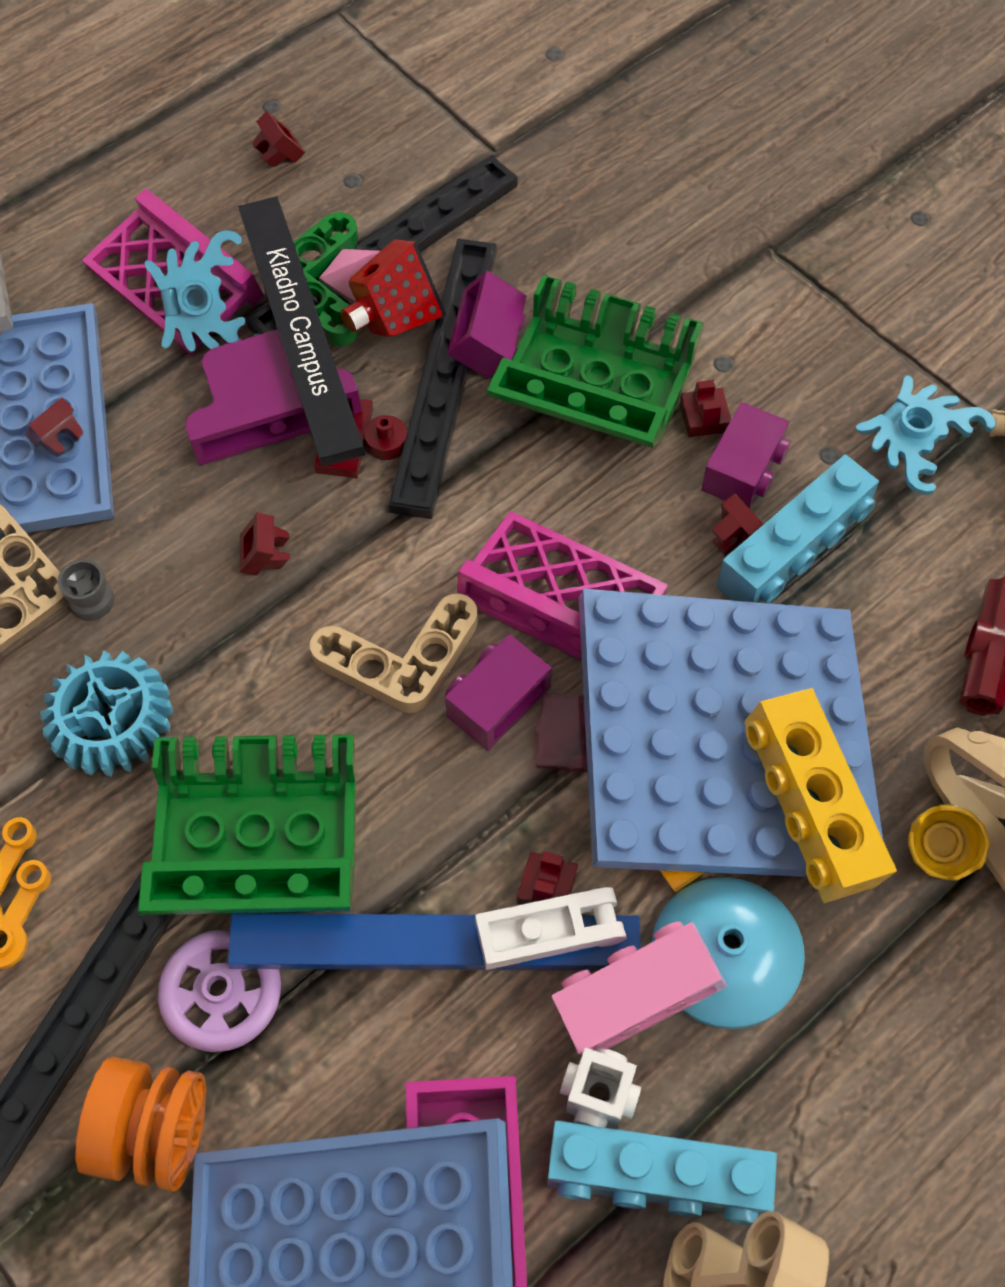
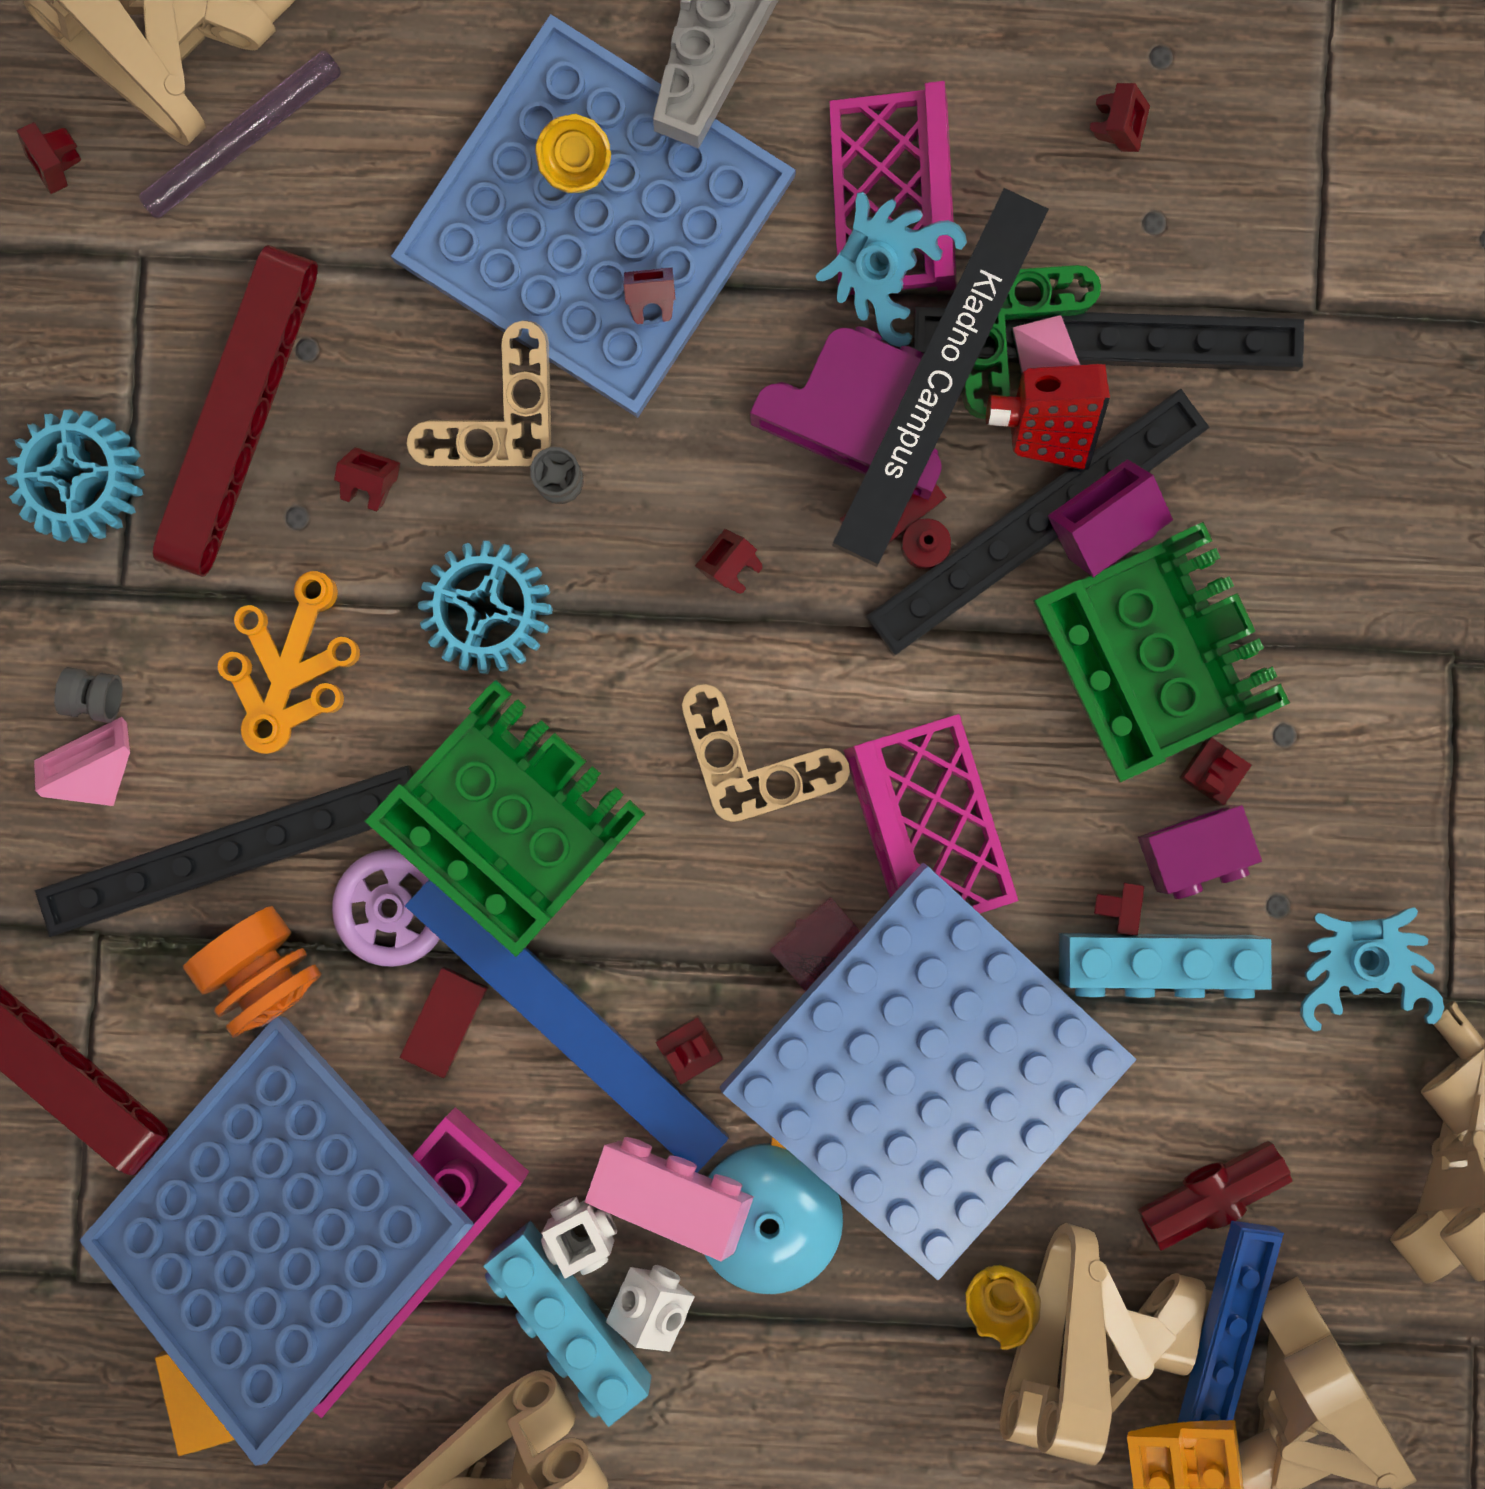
camera: 45 degrees right, 25 degrees up
(340, 1037) = (443, 1022): none -> dark red tile
(497, 691) = (794, 869): magenta brick -> none
(548, 928) = (649, 1095): white plate -> none
(709, 1092) = (650, 1308): none -> white brick
(822, 768) = (917, 1267): yellow brick -> none

